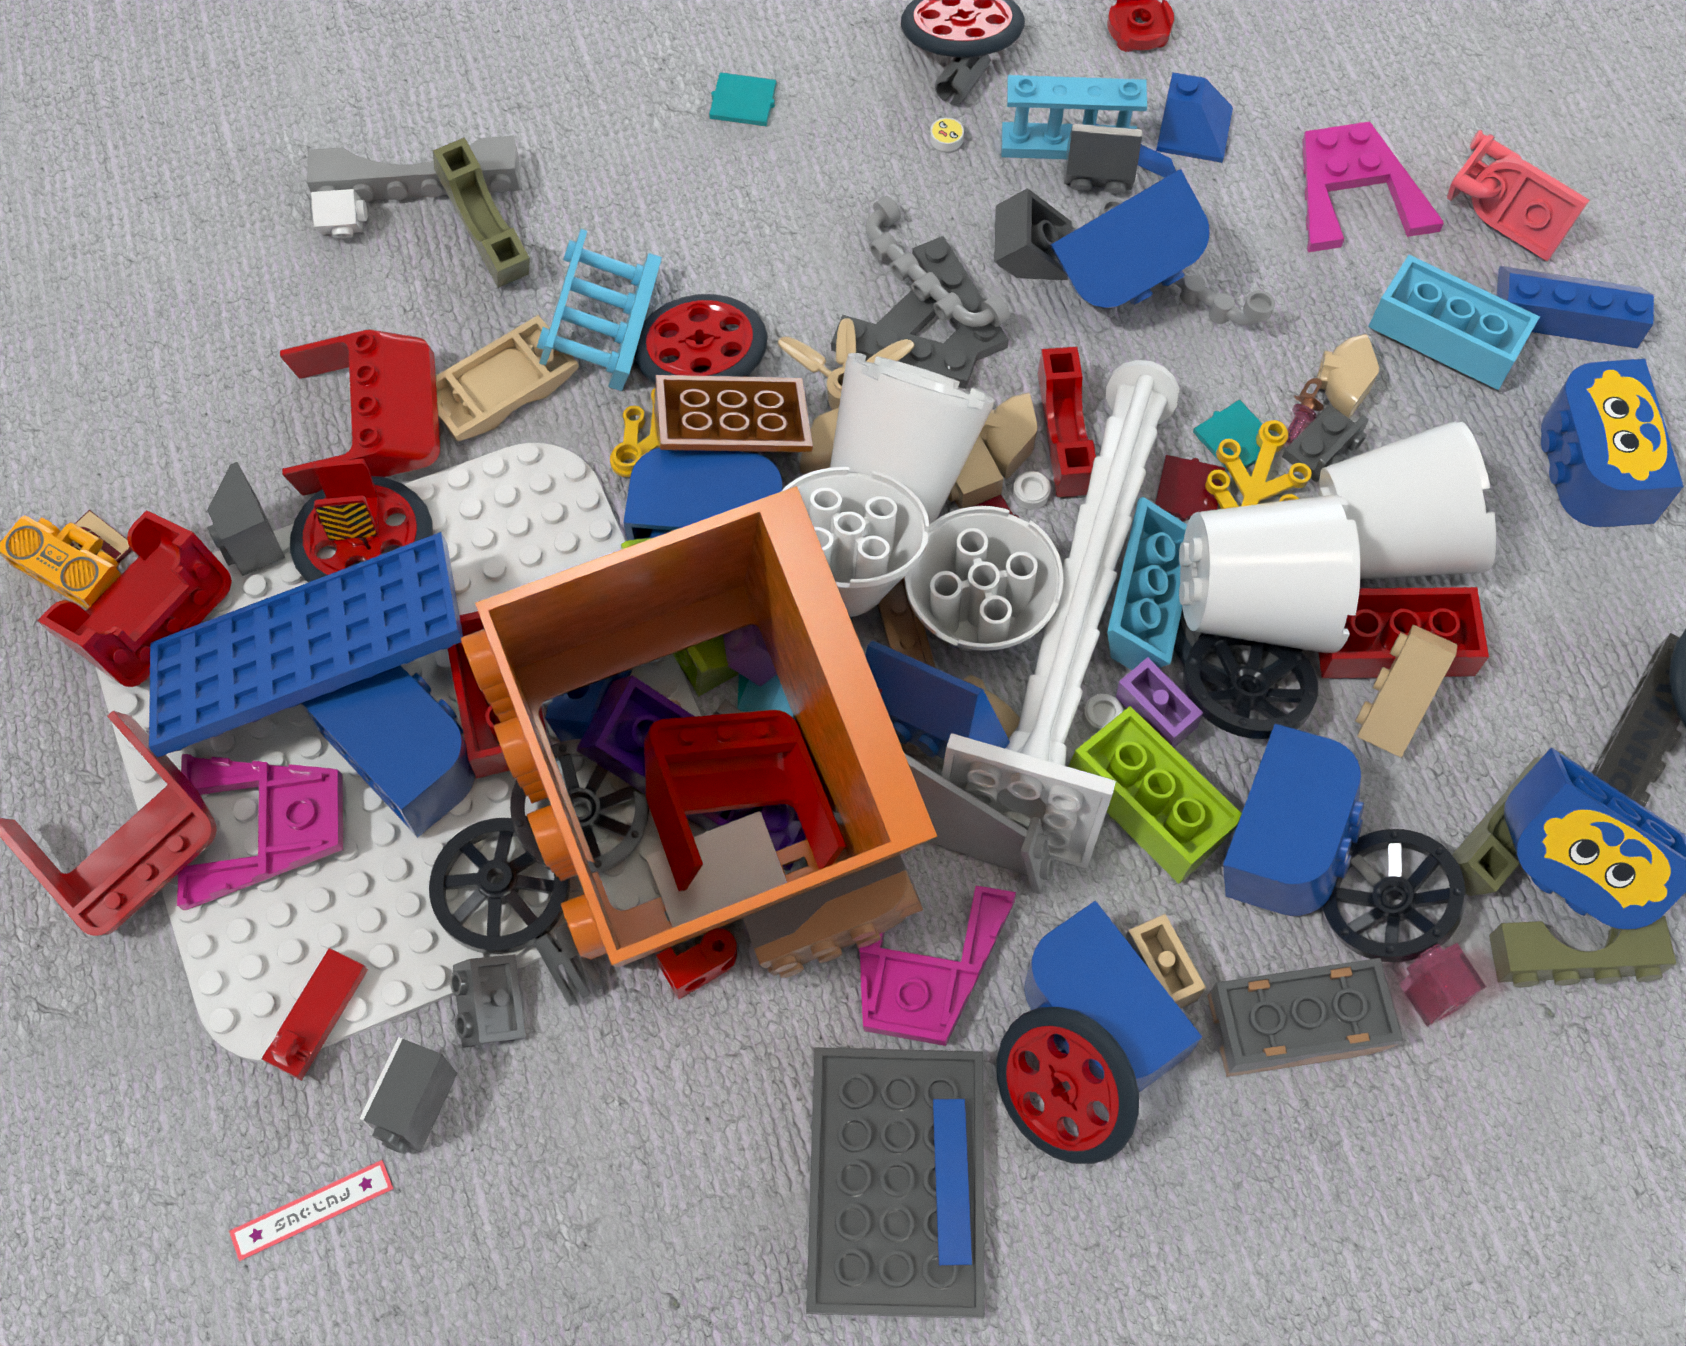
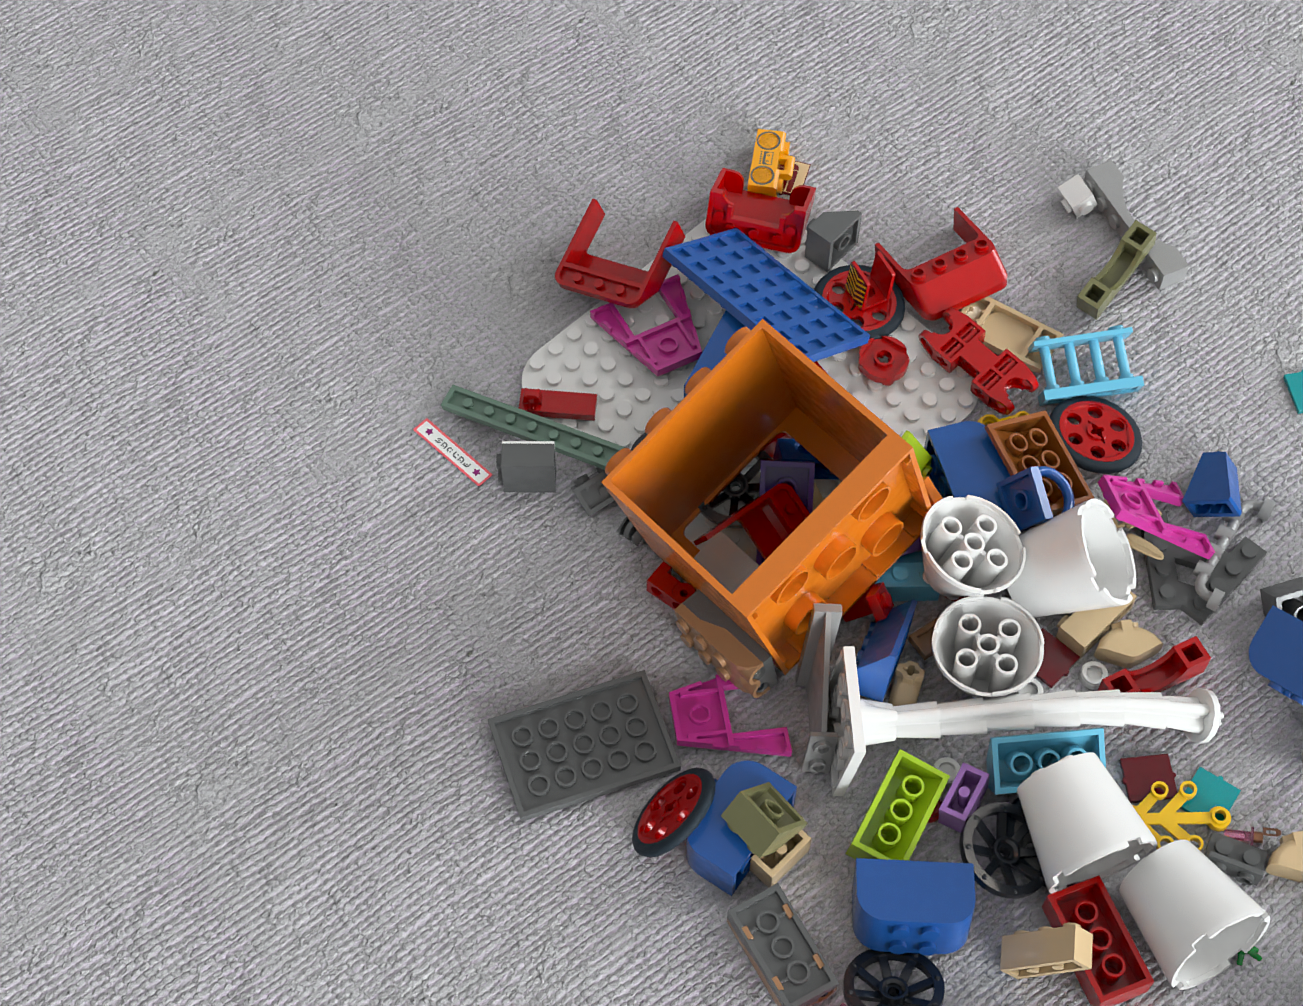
camera: 70 degrees right, 5 degrees down
(343, 1067) = (529, 426): none -> sand green plate
(474, 521) = (881, 372): none -> red plate
(531, 426) = (965, 349): none -> red piece
(794, 435) = (1026, 499): none -> blue tile
(838, 334) = (1133, 505): none -> dark pink wing
(840, 247) = (1214, 487): none -> blue slope
(952, 1182) = (593, 773): blue sticker -> none
(1141, 961) = (763, 819): none -> olive slope

